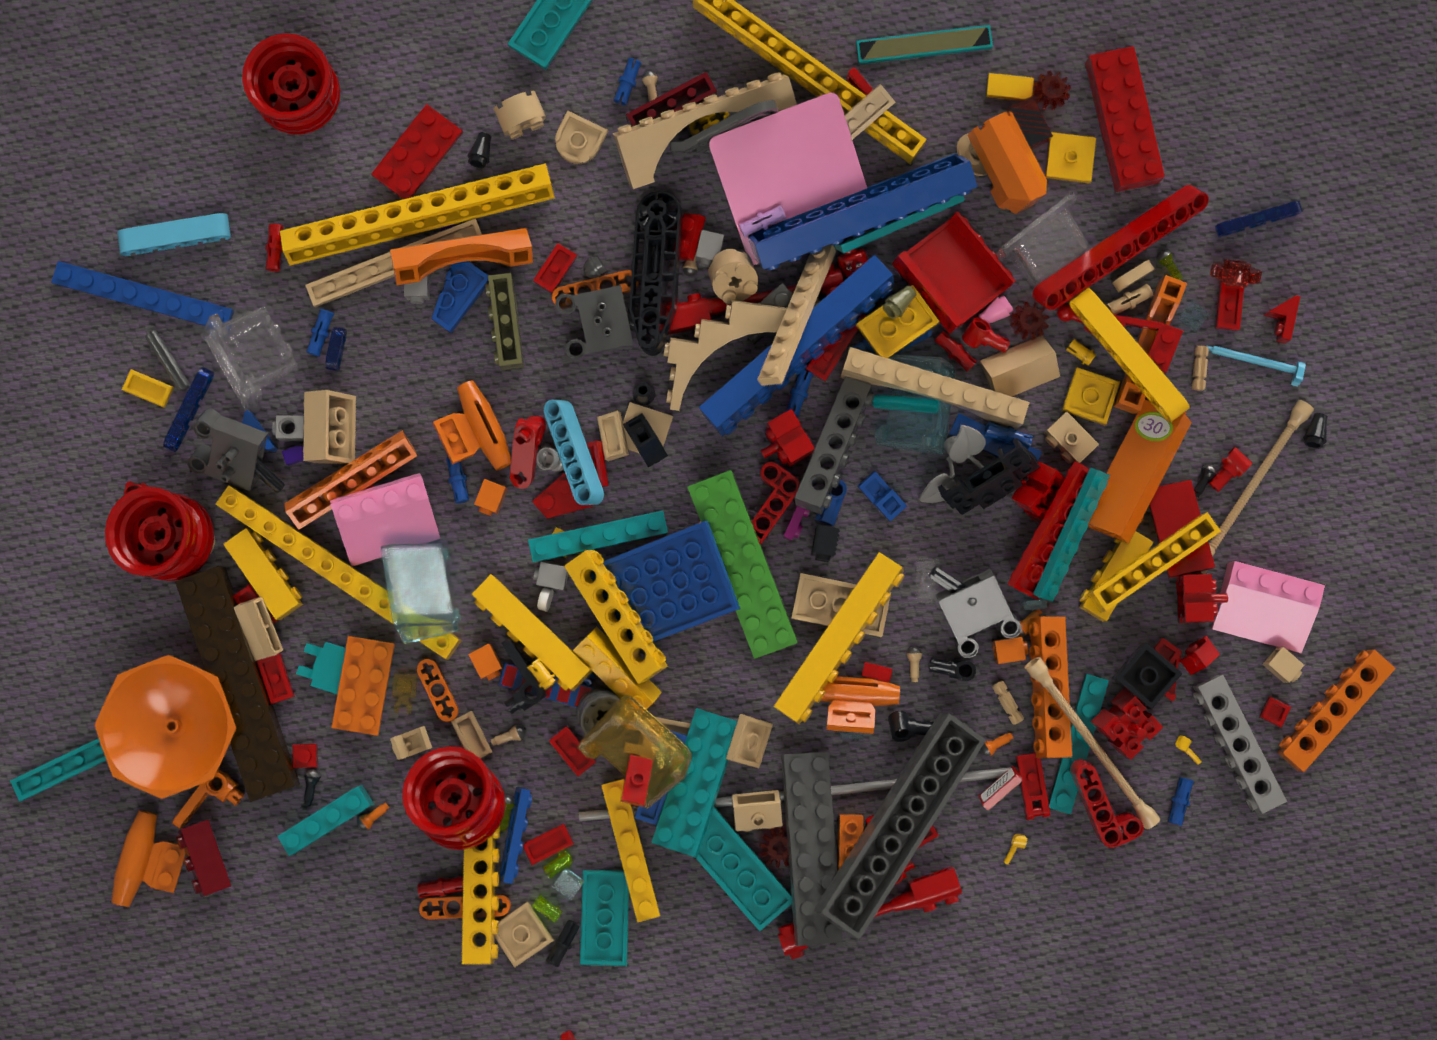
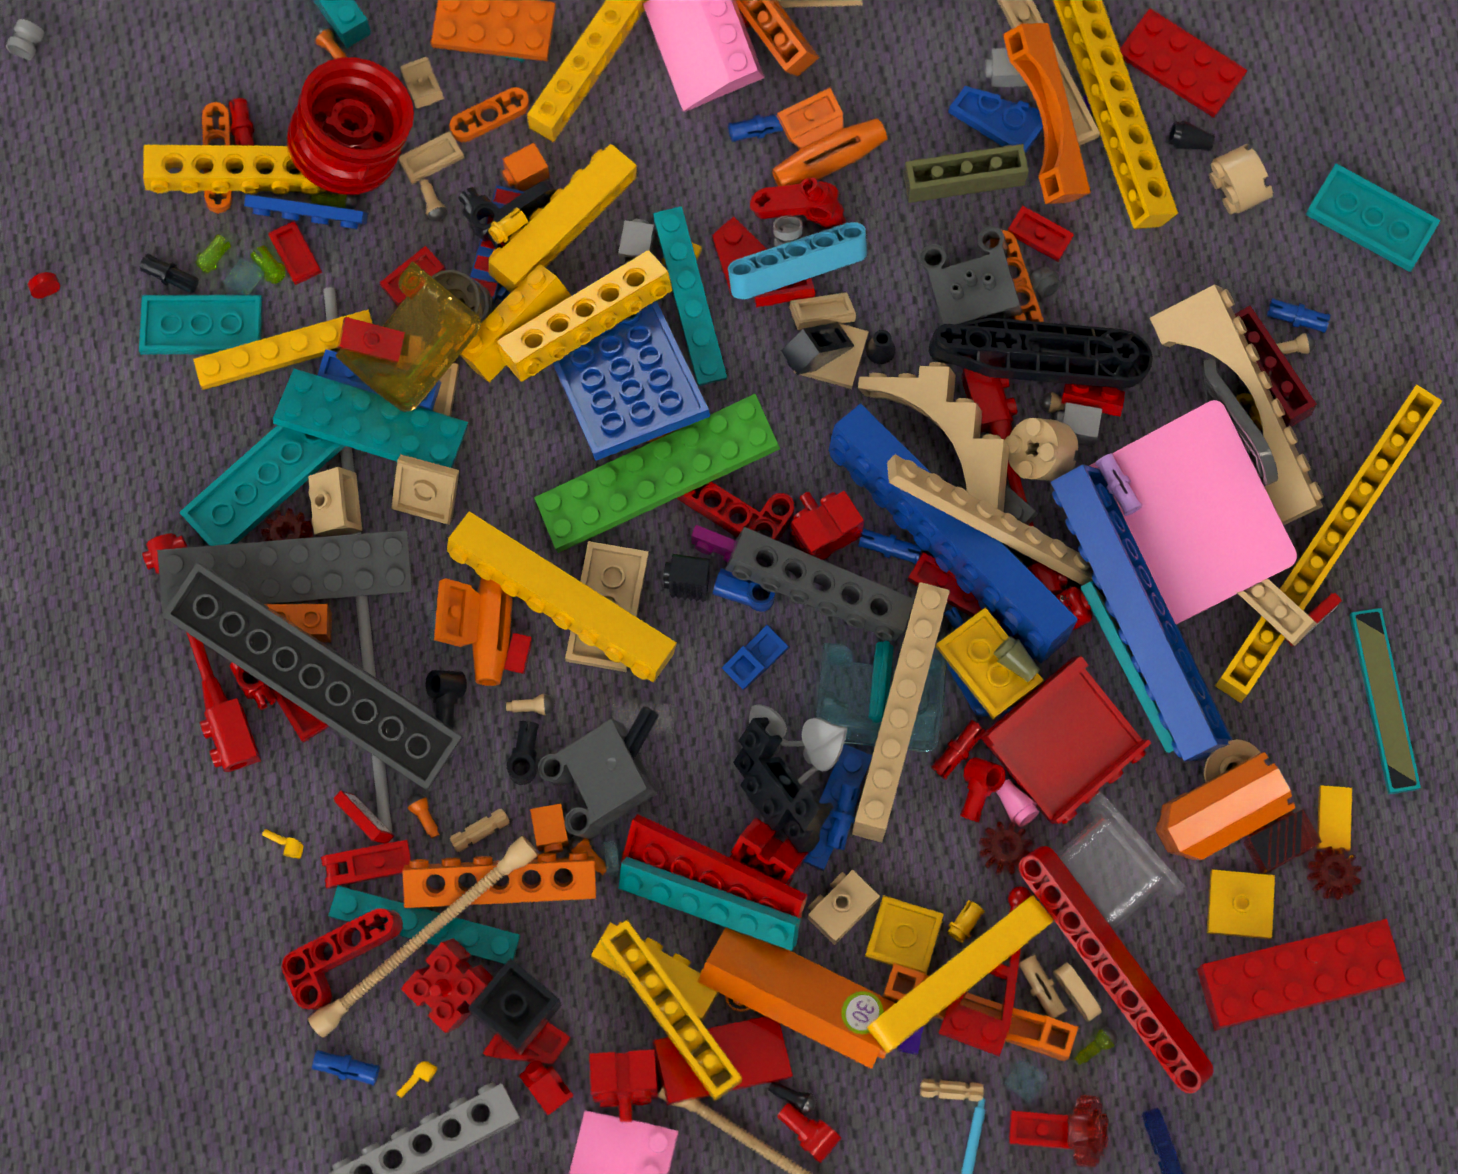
camera: 90 degrees right, 10 degrees down
(404, 687) = (491, 77): clear yellow plate -> none
(419, 590) = (612, 73): clear light blue windscreen -> none
(490, 497) = (736, 165): orange brick -> none
(522, 934) = (181, 225): tan tile -> none
(545, 599) = (606, 236): white tile -> none
(579, 139) = (1216, 257): tan tile -> none
(1021, 367) = (938, 838): tan slope -> none

